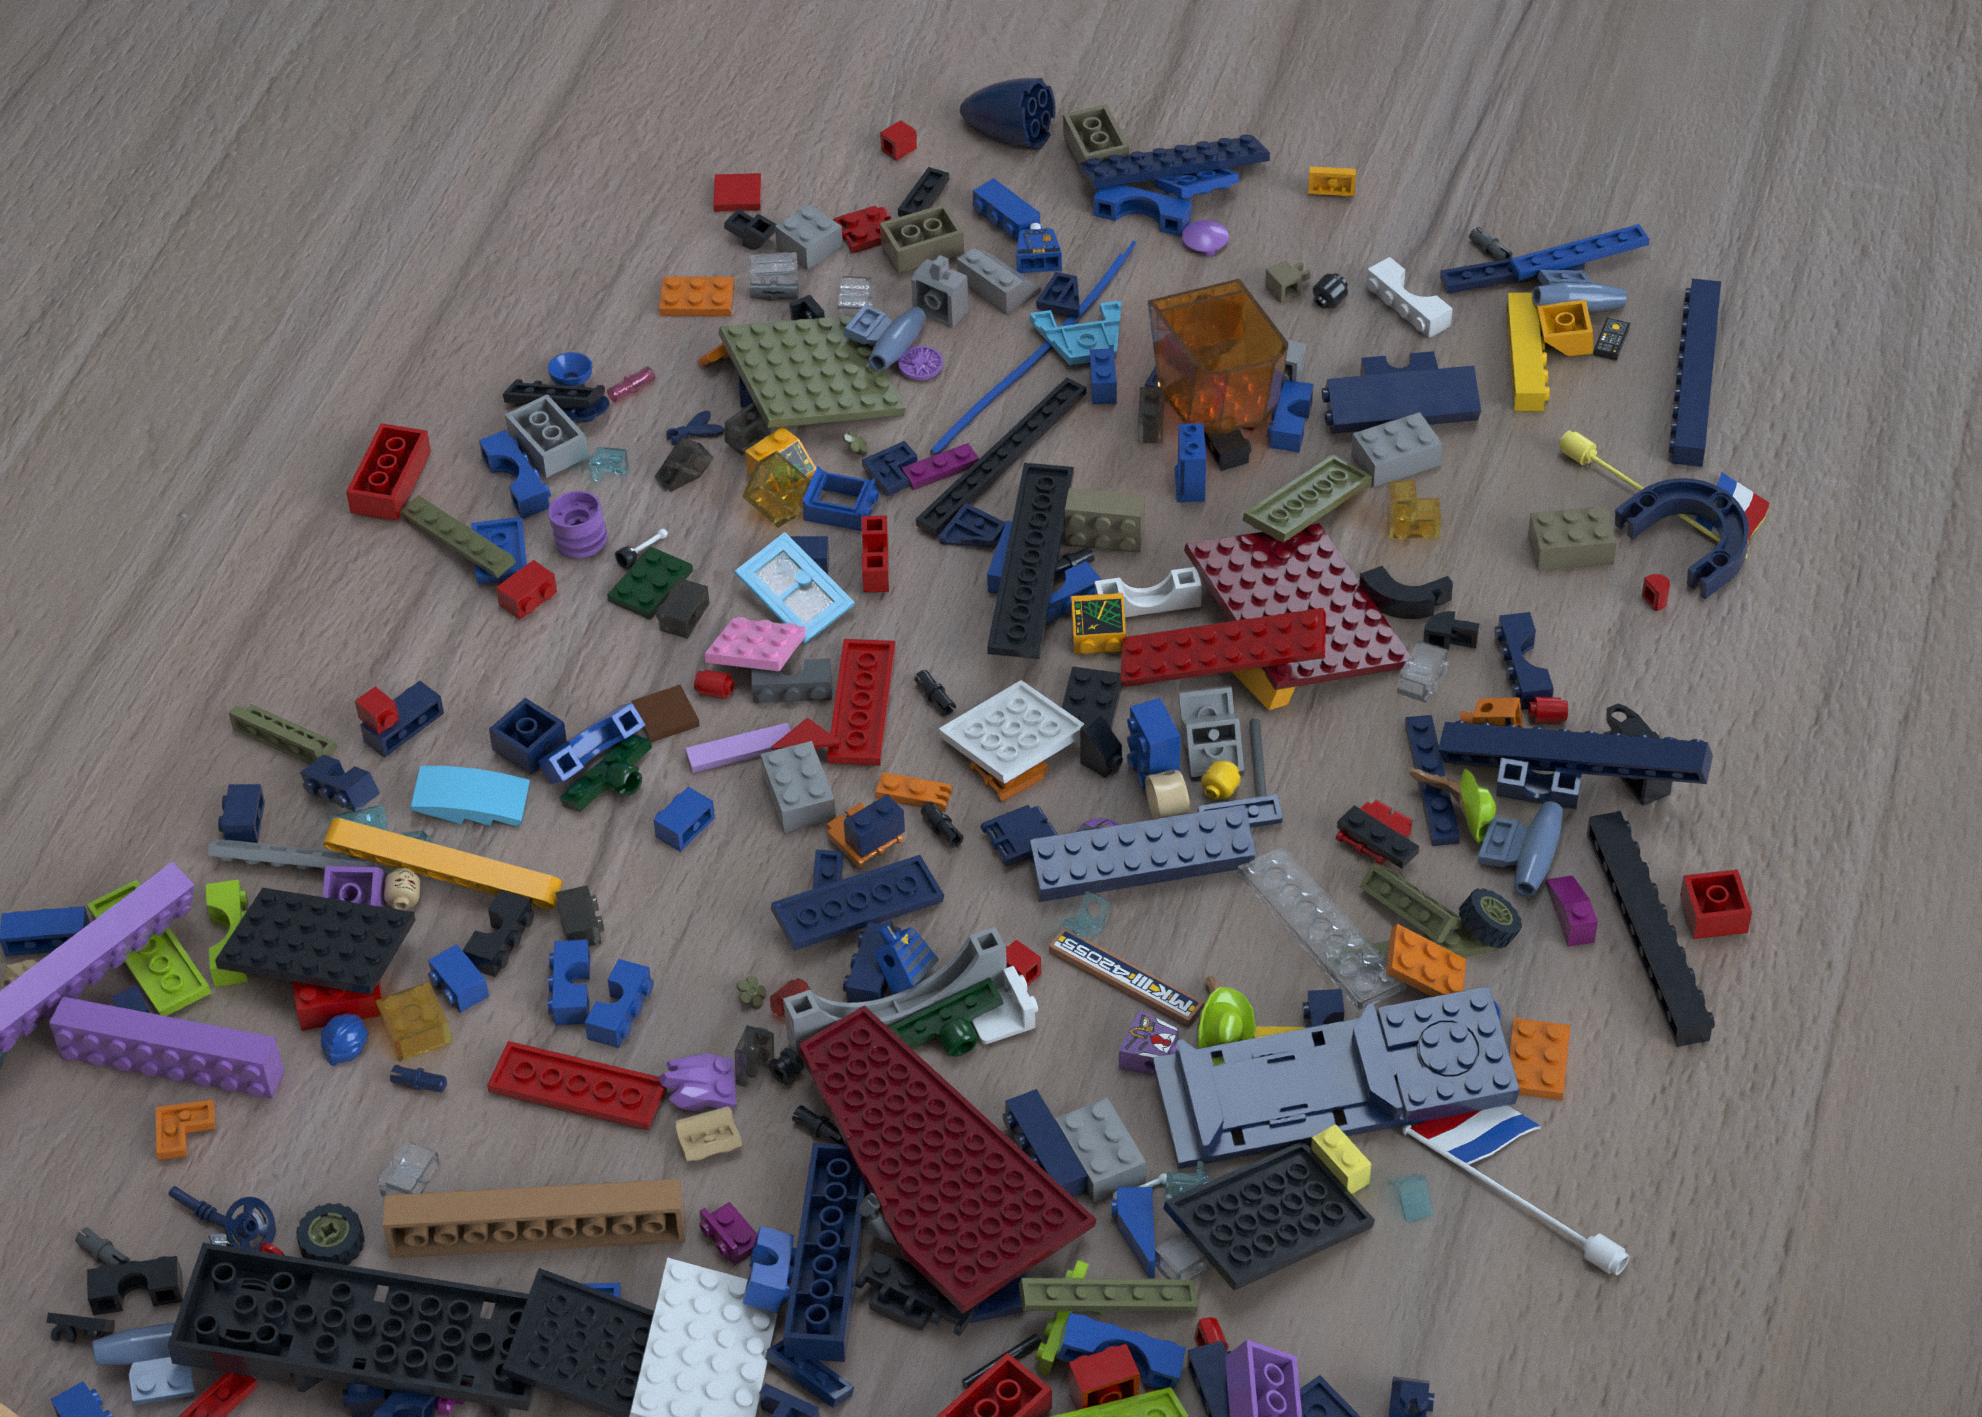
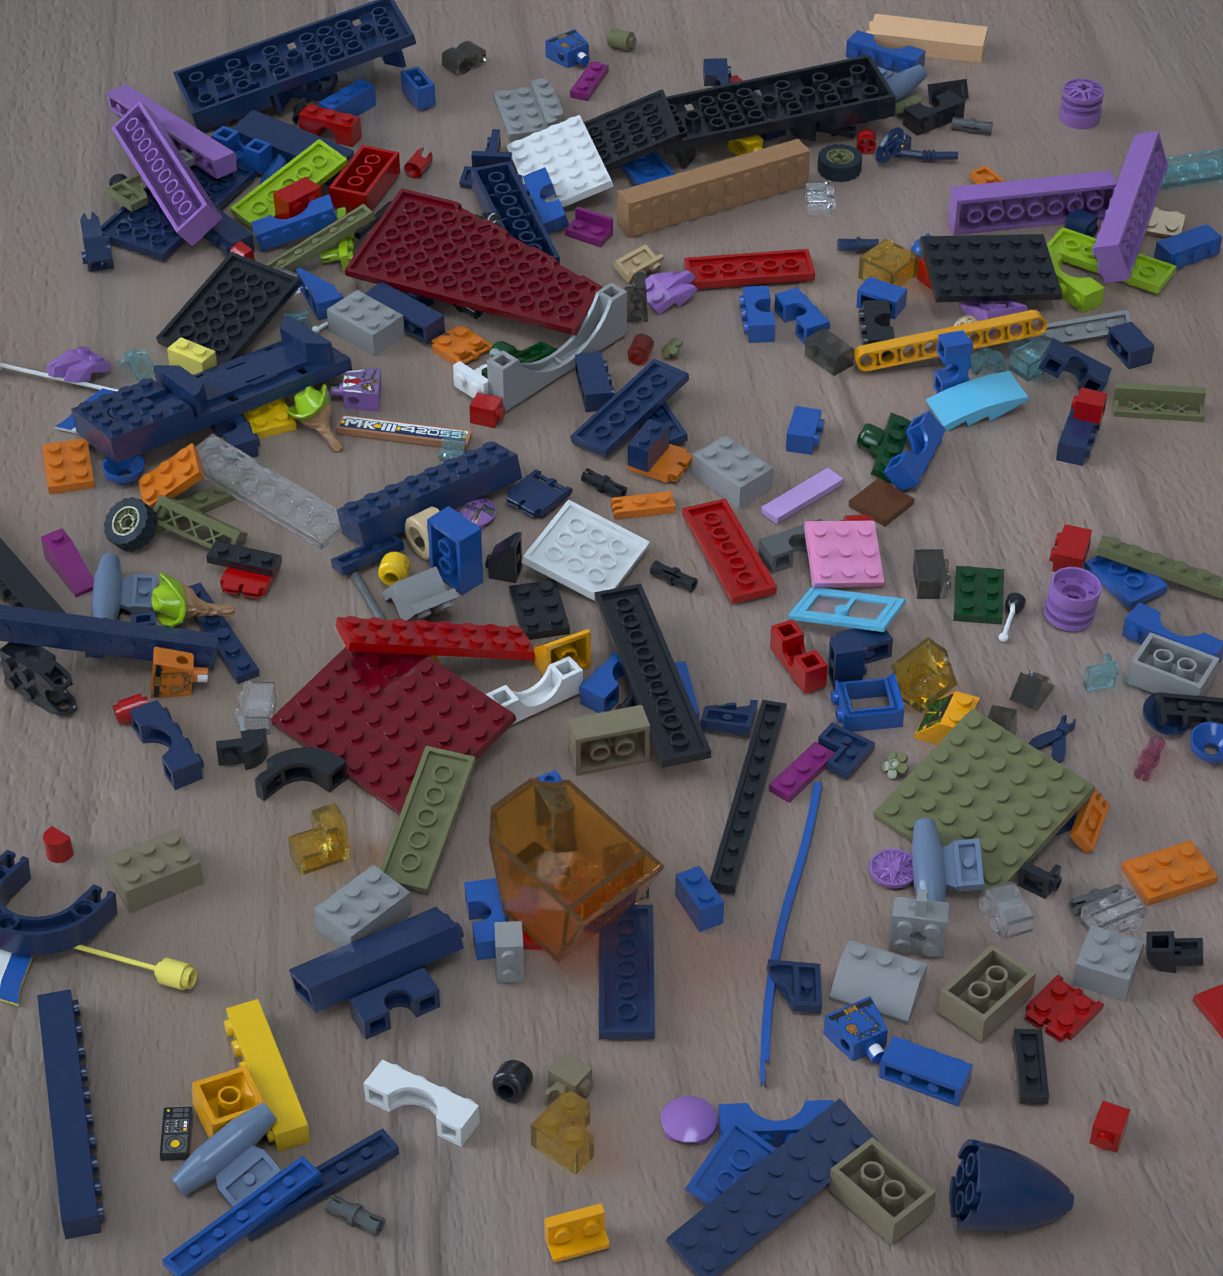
camera: 155 degrees right, 5 degrees down
(154, 1309) = (911, 100): none -> olive animal
(471, 806) = (954, 351): none -> blue arch
(527, 735) = (967, 441): dark blue brick -> none
(806, 732) = (747, 502): red tile -> none
(837, 522) = (846, 658): none -> dark blue brick
(903, 957) = (568, 375): blue torso -> none
(994, 1084) = (459, 344): none -> orange plate
(1075, 340) = (743, 938): medium azure wing -> none
(1308, 243) = (562, 1132): none -> clear yellow brick
(1488, 1205) = (78, 365): none -> medium lavender plate

